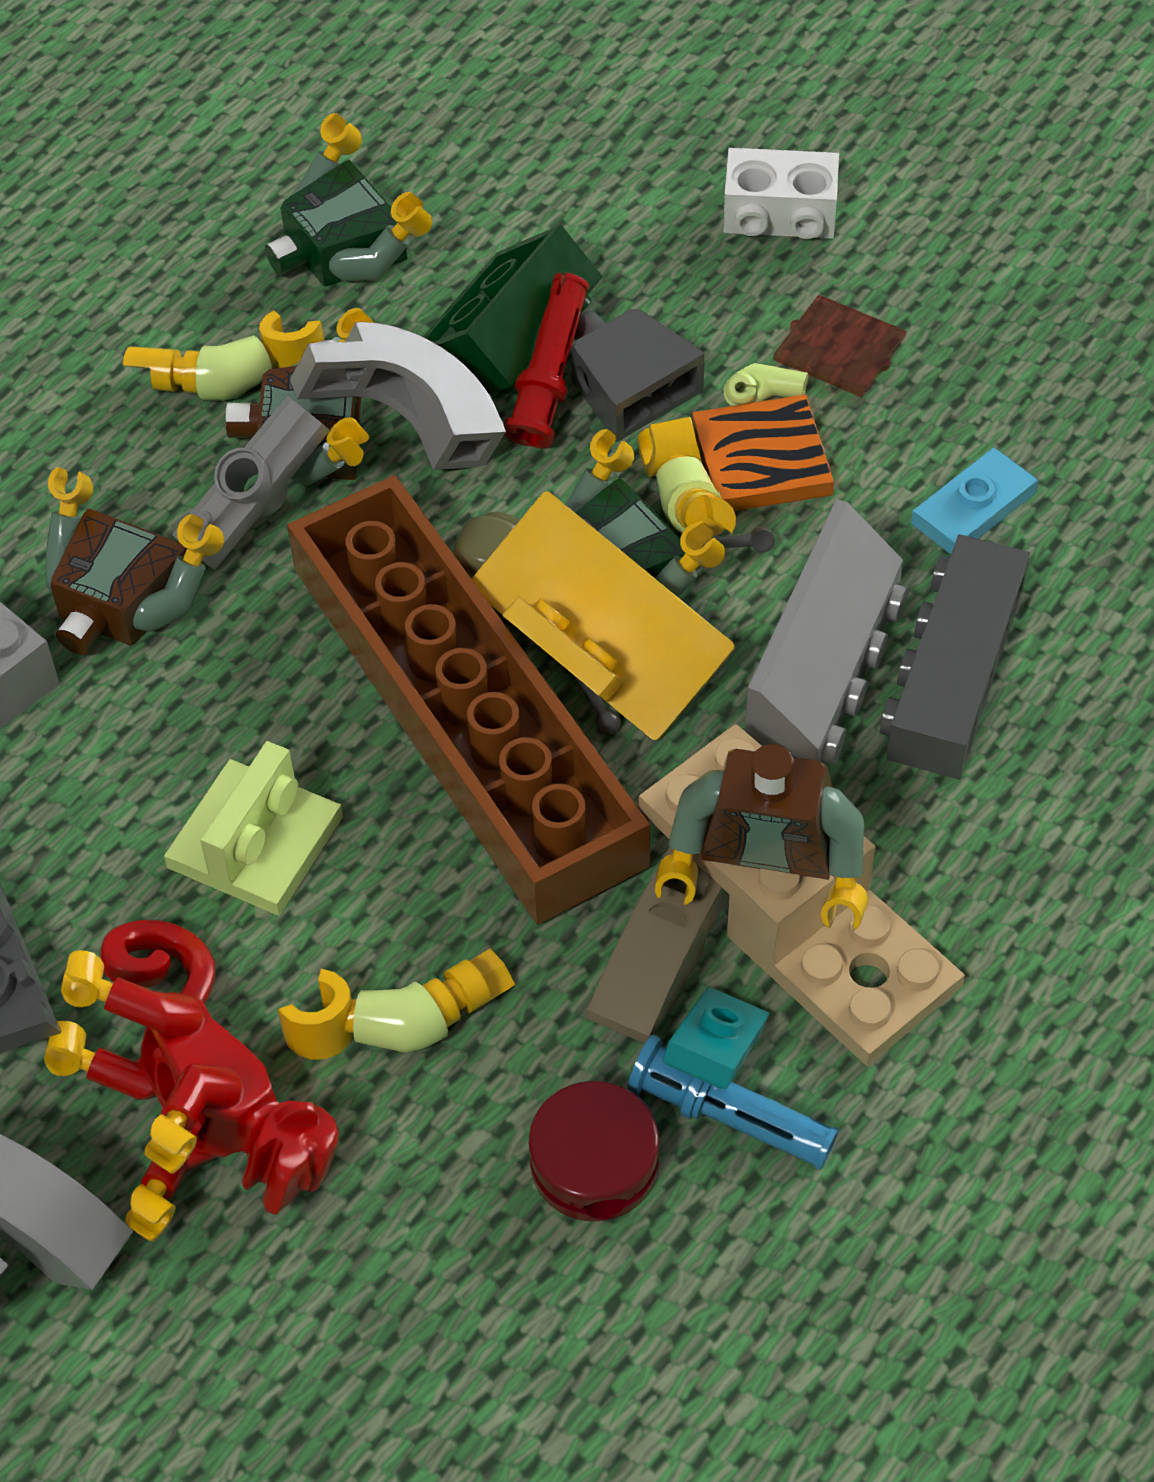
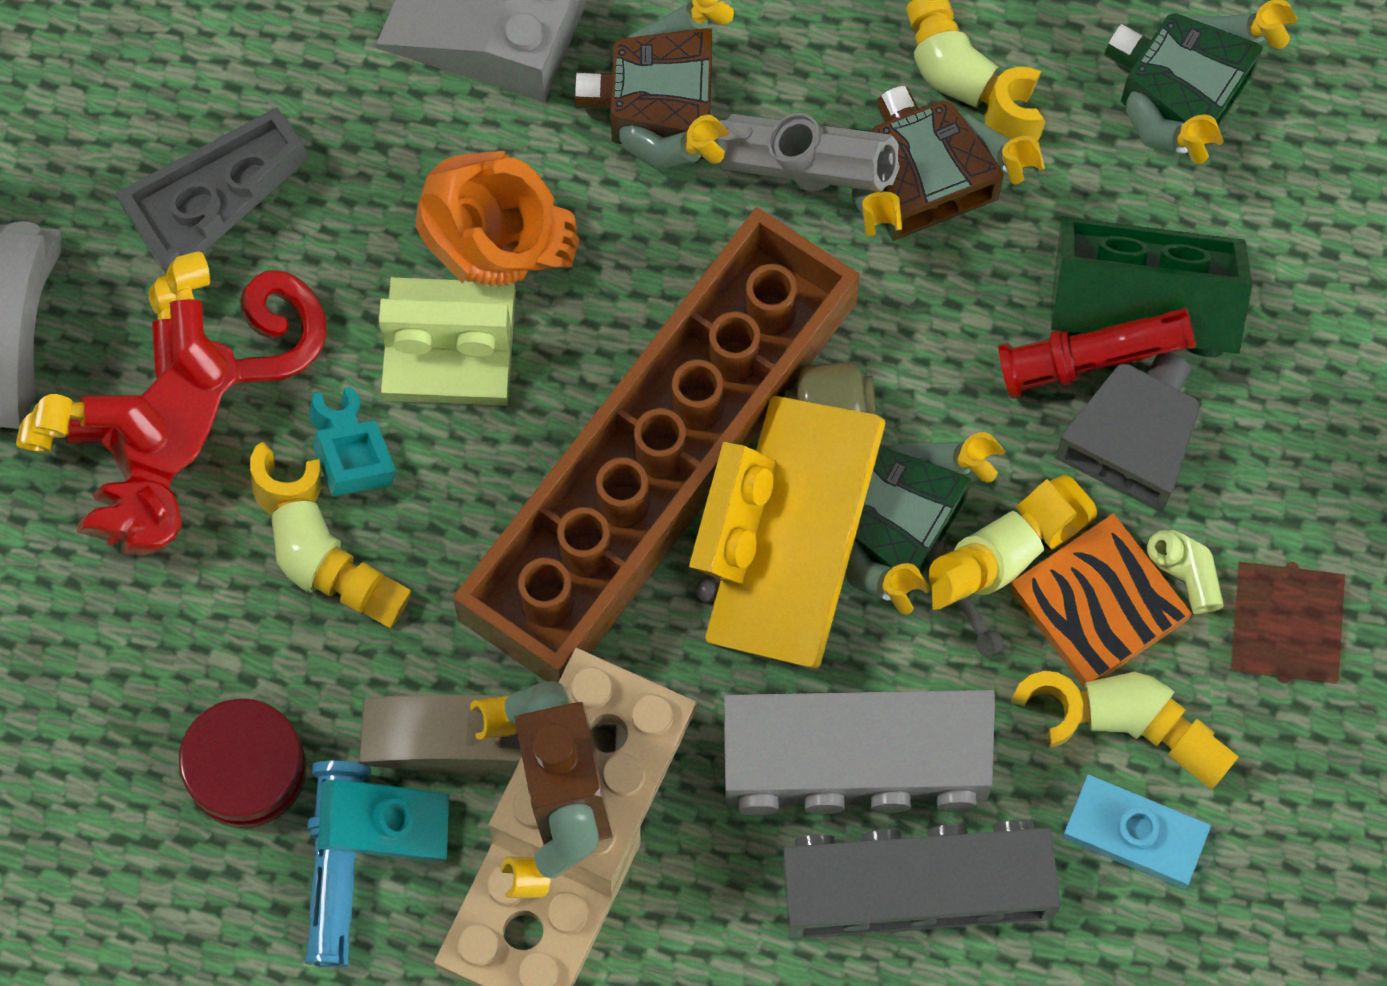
camera: 65 degrees right, 15 degrees up
(167, 763) = (493, 219): none -> orange helmet
(322, 942) = (349, 451): none -> teal plate
(414, 378) = (1001, 242): light grey arch -> none
(874, 453) = (1134, 706): none -> yellow piece

